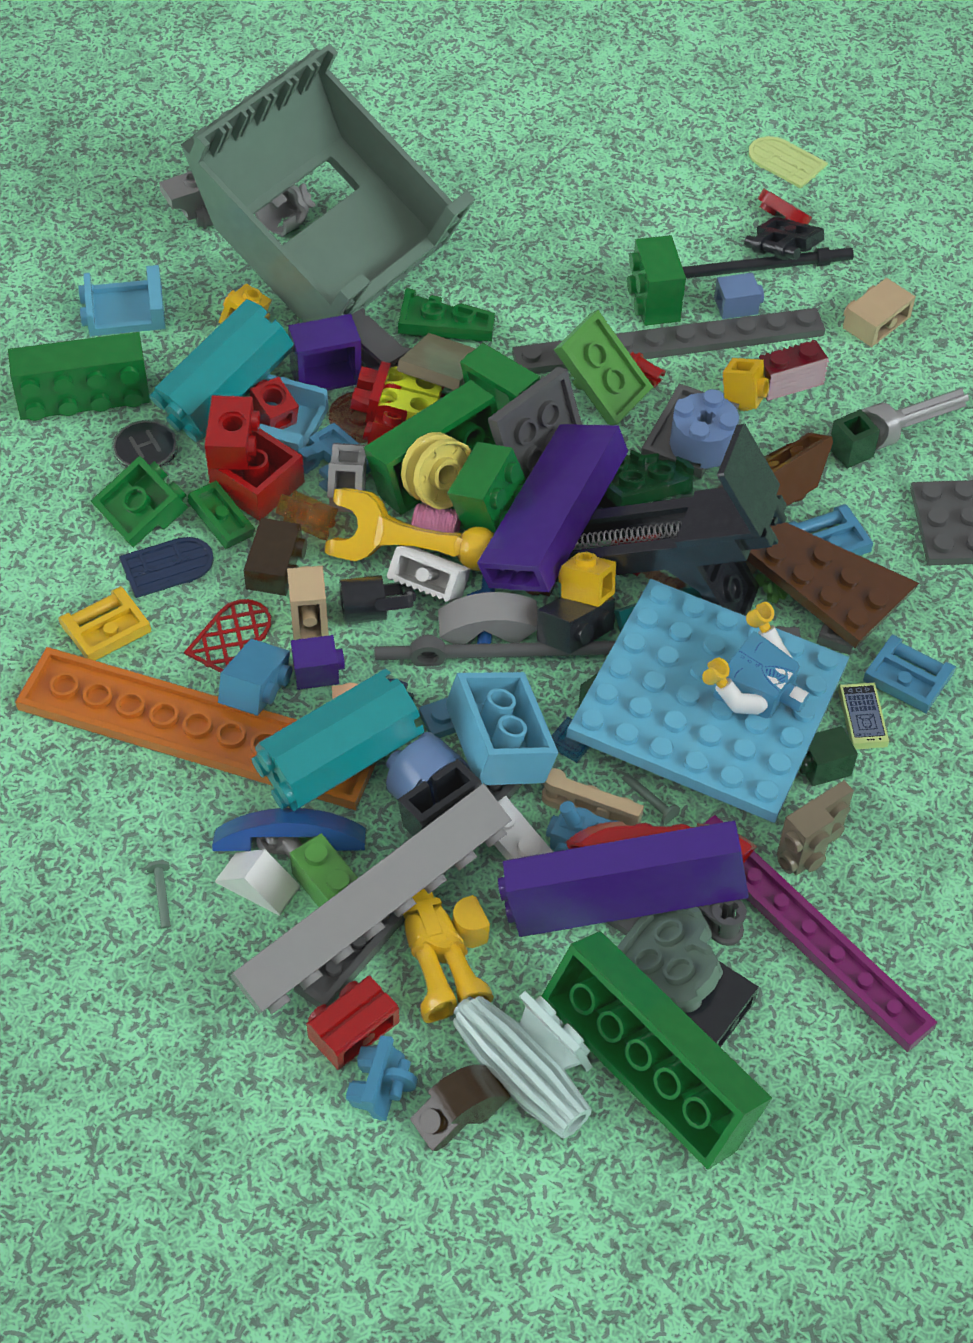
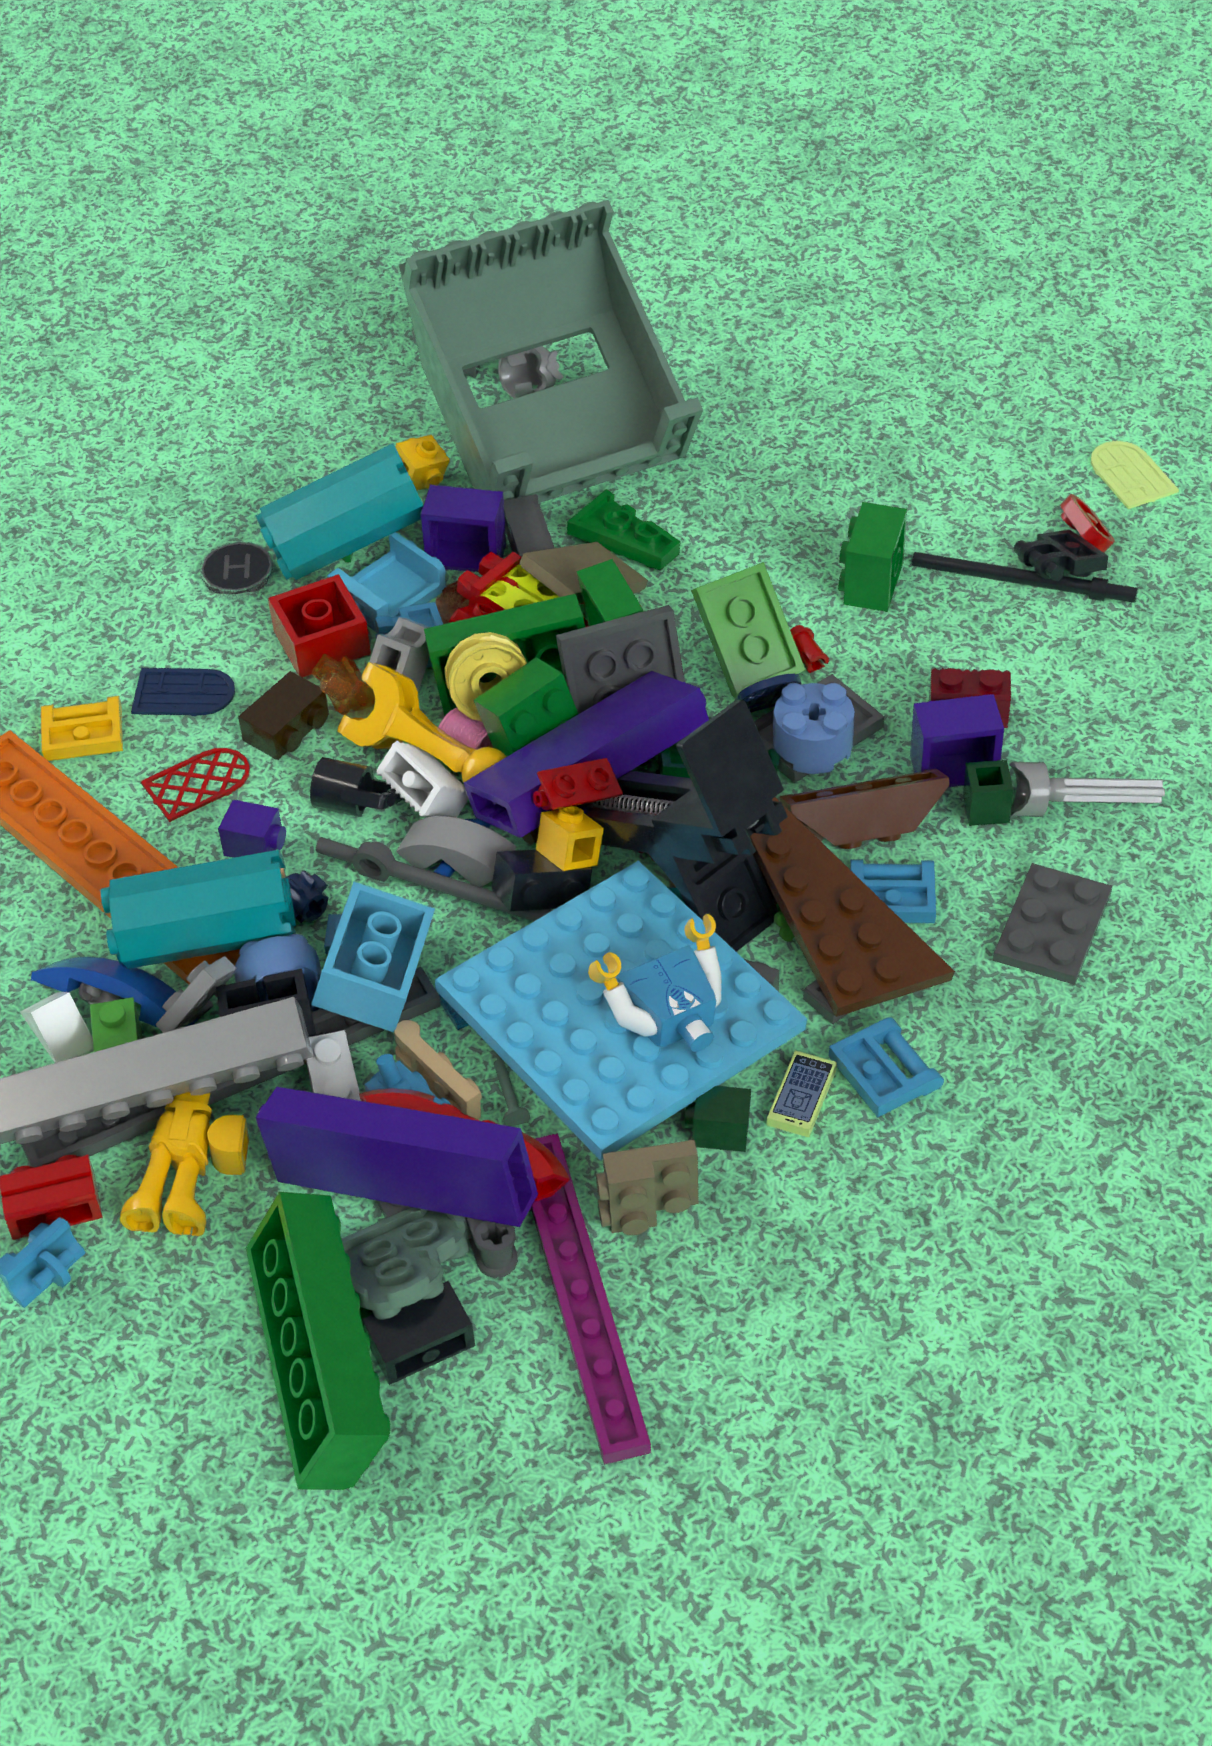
camera: 30 degrees right, 5 degrees down
(79, 376) = (205, 476): green brick -> none
(123, 305) = (307, 425): medium azure panel -> none
(140, 501) = (192, 619): green plate -> none
(221, 514) = (260, 656): green plate -> none
(230, 432) = (301, 573): red brick -> none
(254, 677) = (177, 824): dark azure brick -> none
(279, 415) = (383, 577): red brick -> none
(308, 602) = (277, 769): tan brick -> none
(377, 812) = (195, 1001): none -> light grey wing
(457, 1100) = (99, 1311): brick -> none
(529, 1058) = (193, 1298): light aqua plate -> none
(579, 535) = (576, 785): none -> red hinge
(642, 421) = (766, 692): none -> dark blue window
(692, 337) = (900, 634): dark grey plate -> none
(738, 295) = (965, 601): medium blue brick -> none
(745, 383) = (897, 691): yellow brick -> none
(810, 403) = (955, 733): none -> dark purple piece
(878, 312) = (1119, 667): tan brick -> none

